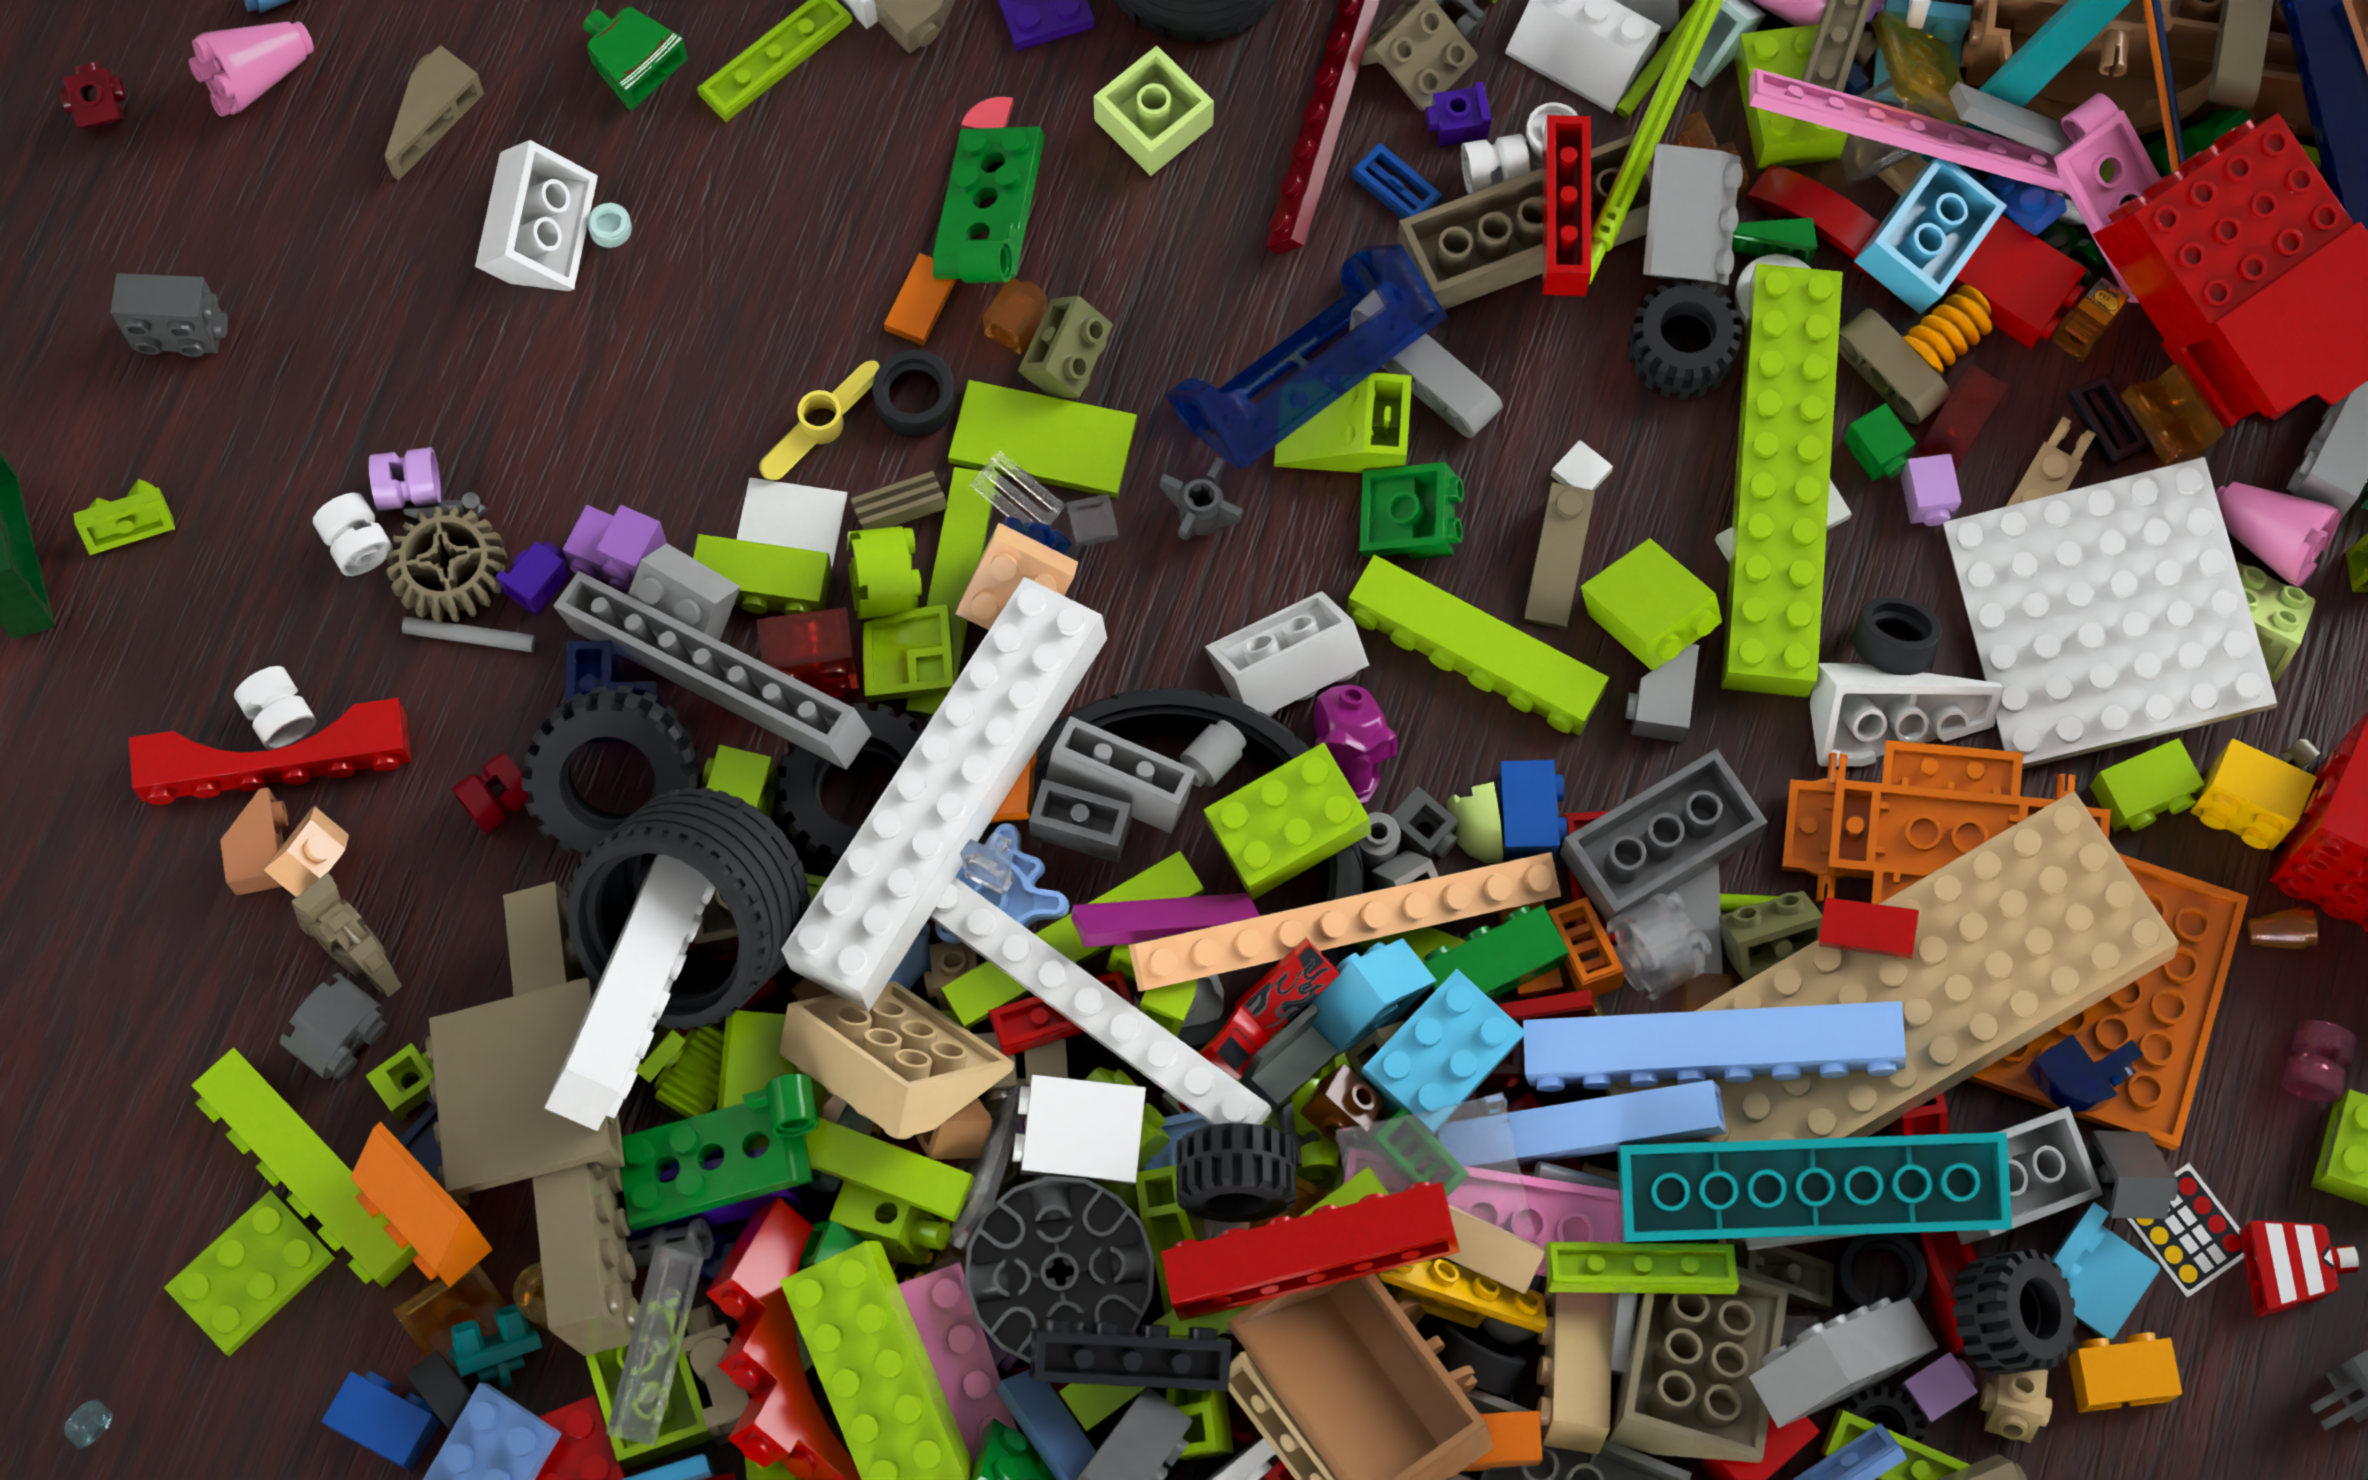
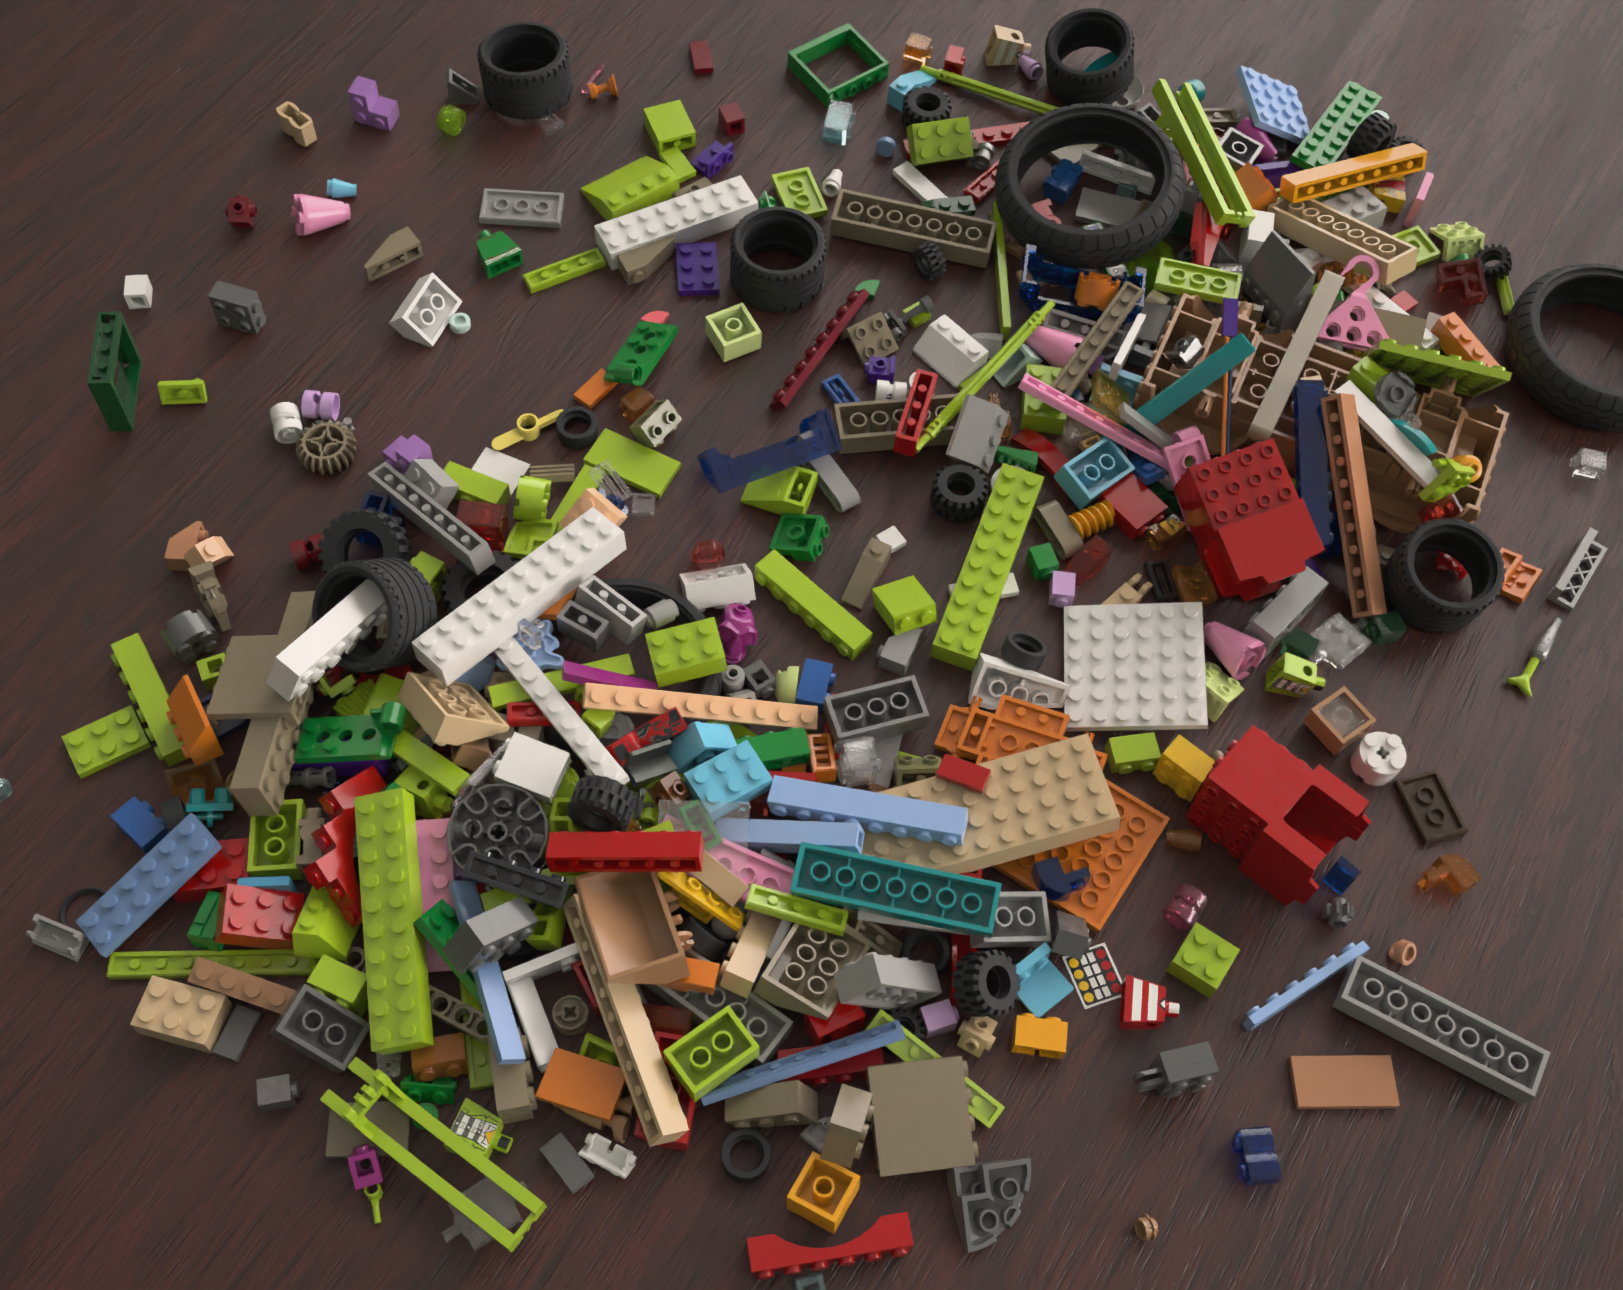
camera: 10 degrees right, 10 degrees down
(276, 713) = (219, 489): white wheel -> none
(362, 738) = (255, 513): red arch -> none
(469, 634) = (325, 481): light grey bar -> none
(535, 576) = (364, 462): dark purple brick -> none
(655, 1345) = (284, 818): clear tile -> none
(1201, 503) = (697, 506): dark grey brick -> none
(1250, 594) = (708, 554): none -> clear red head

